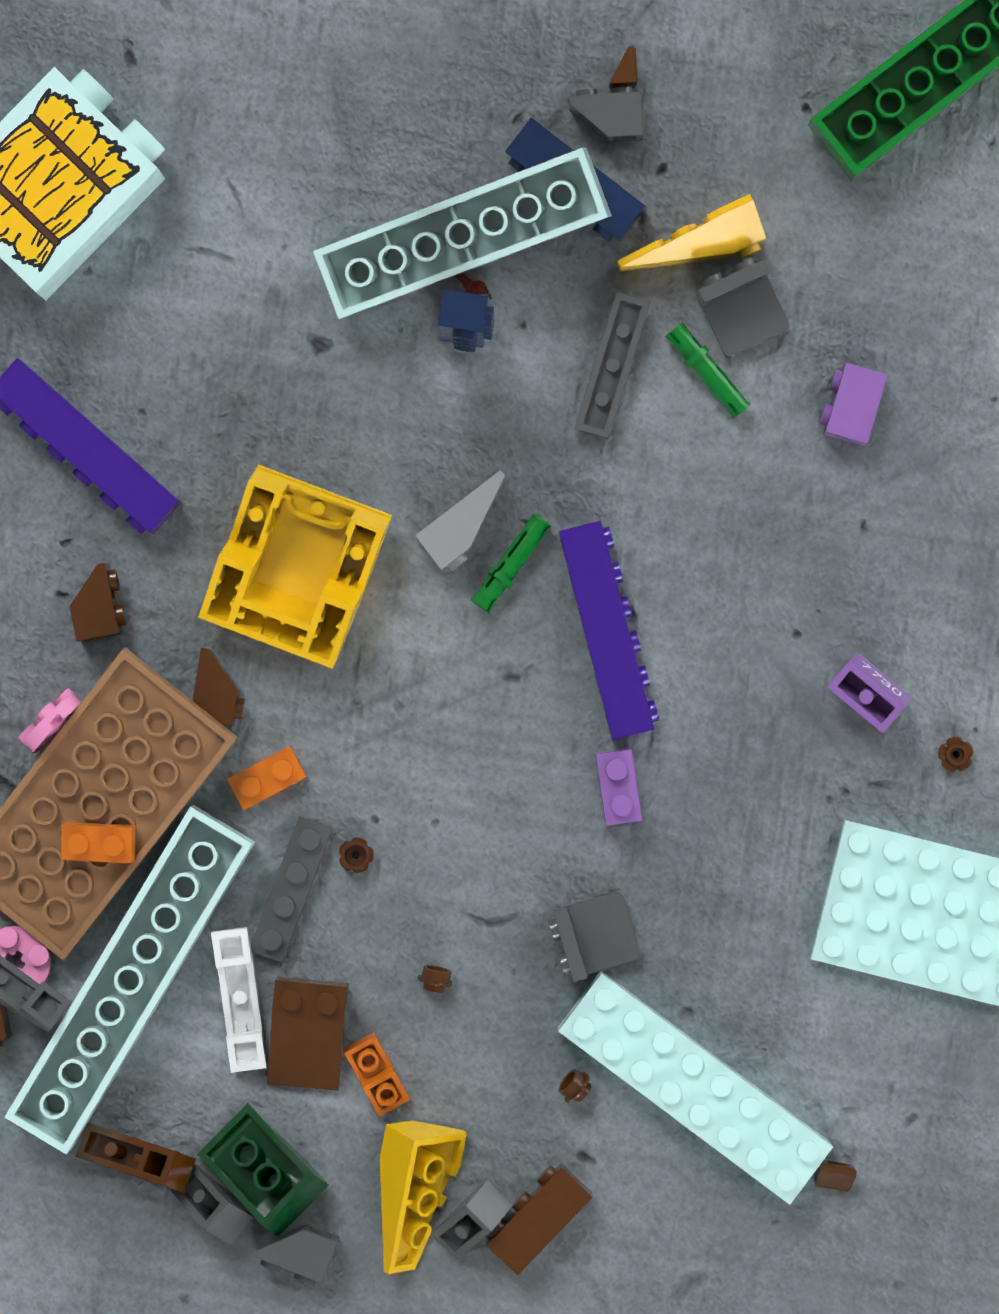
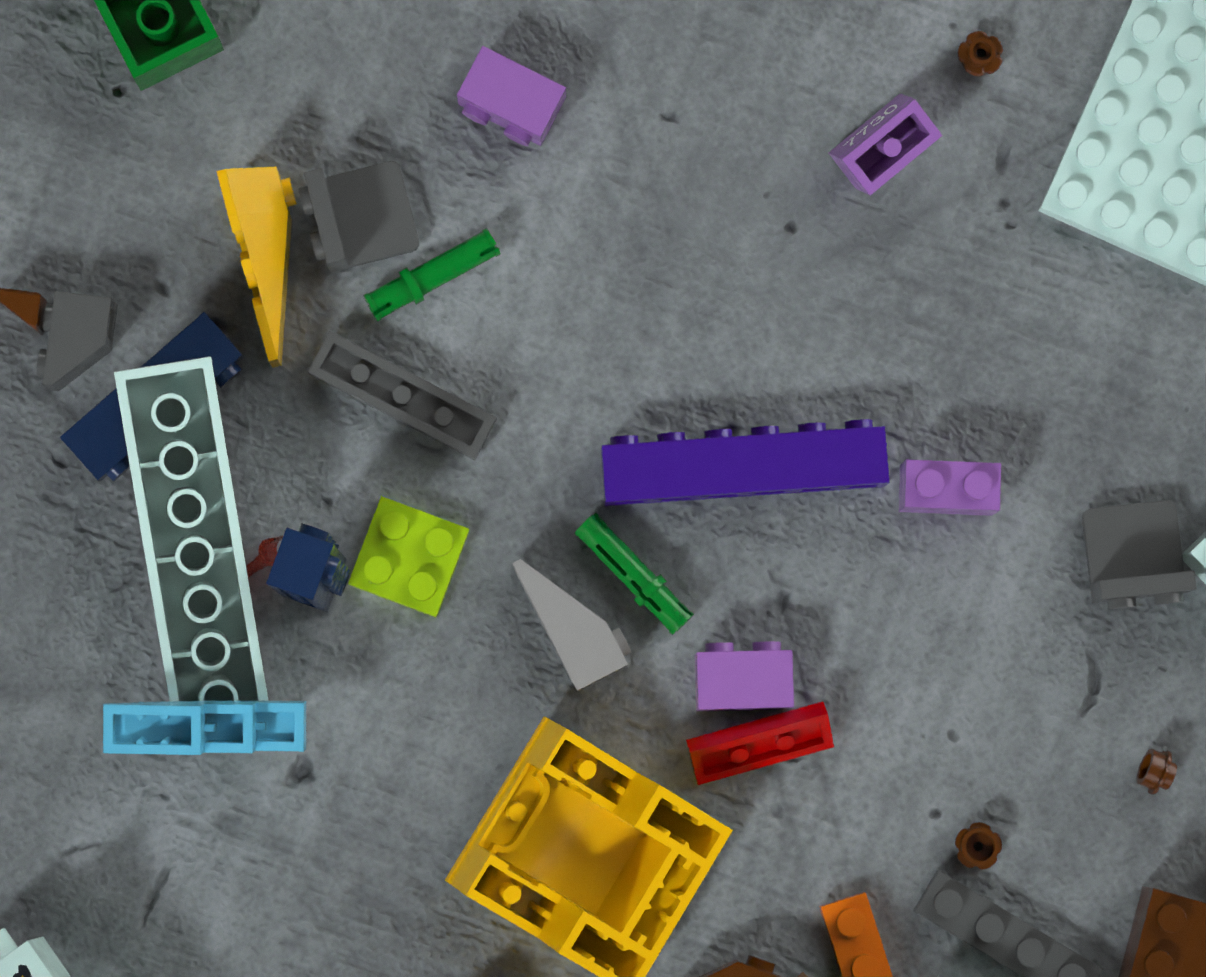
camera: 90 degrees left, 5 degrees down
(335, 266) = (203, 727): none -> medium azure slope
(401, 679) = (760, 743): none -> red plate
(447, 658) = (744, 678): none -> medium lavender brick
(492, 393) = (408, 557): none -> lime plate

